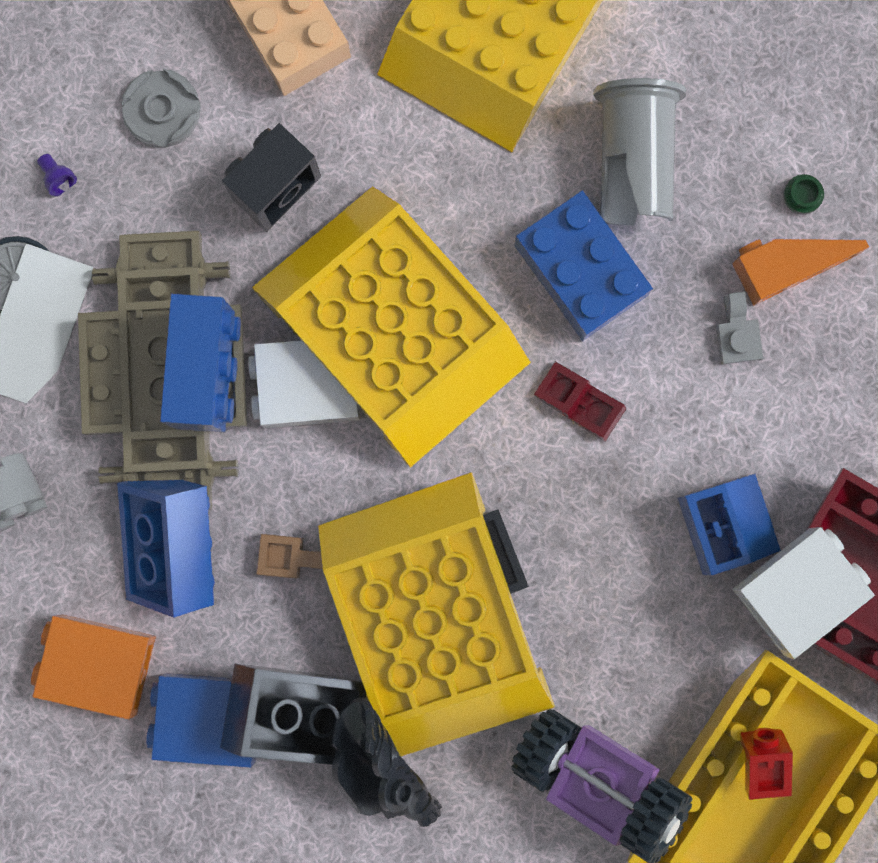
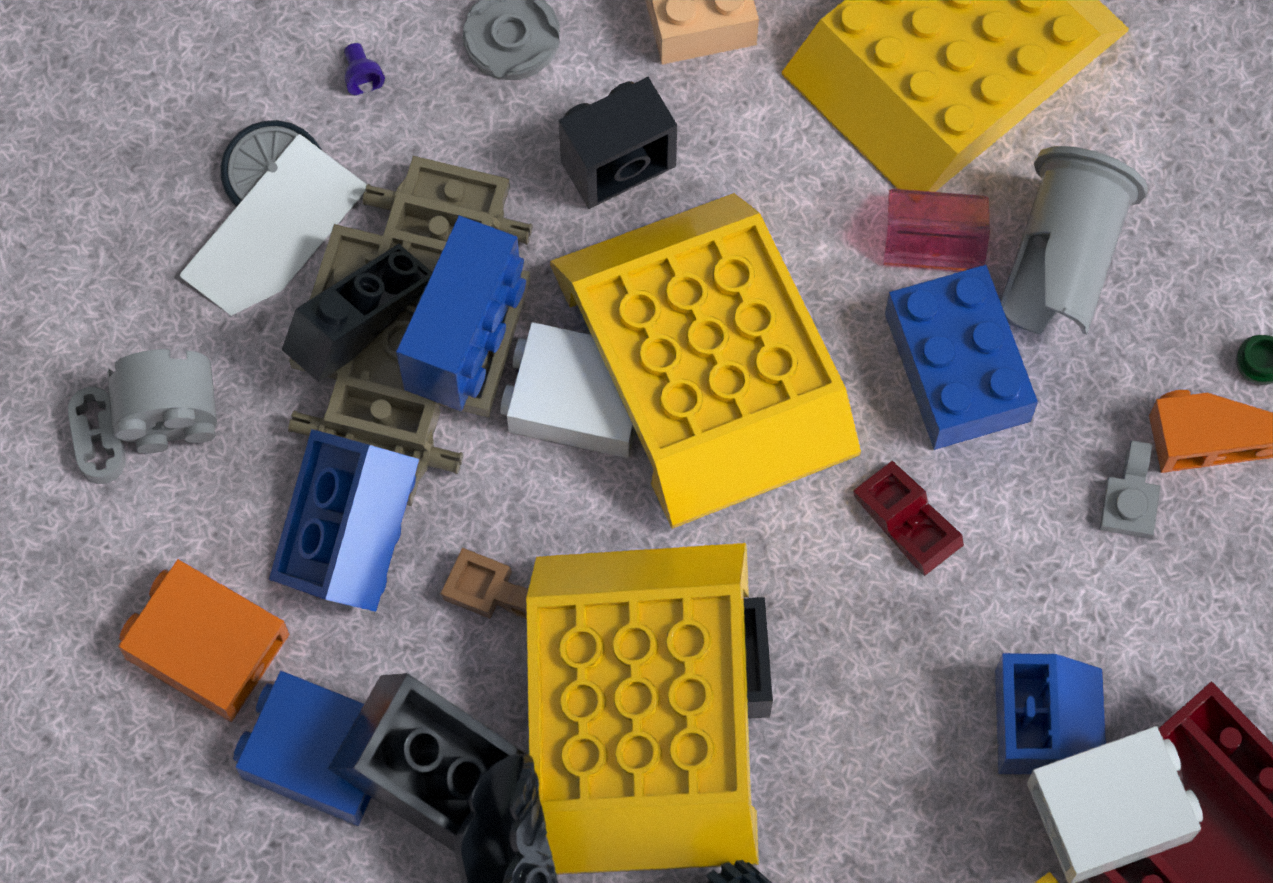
camera: 15 degrees right, 15 degrees down
(118, 382) = (353, 312): none -> black slope
(534, 167) = (936, 230): none -> clear pink panel

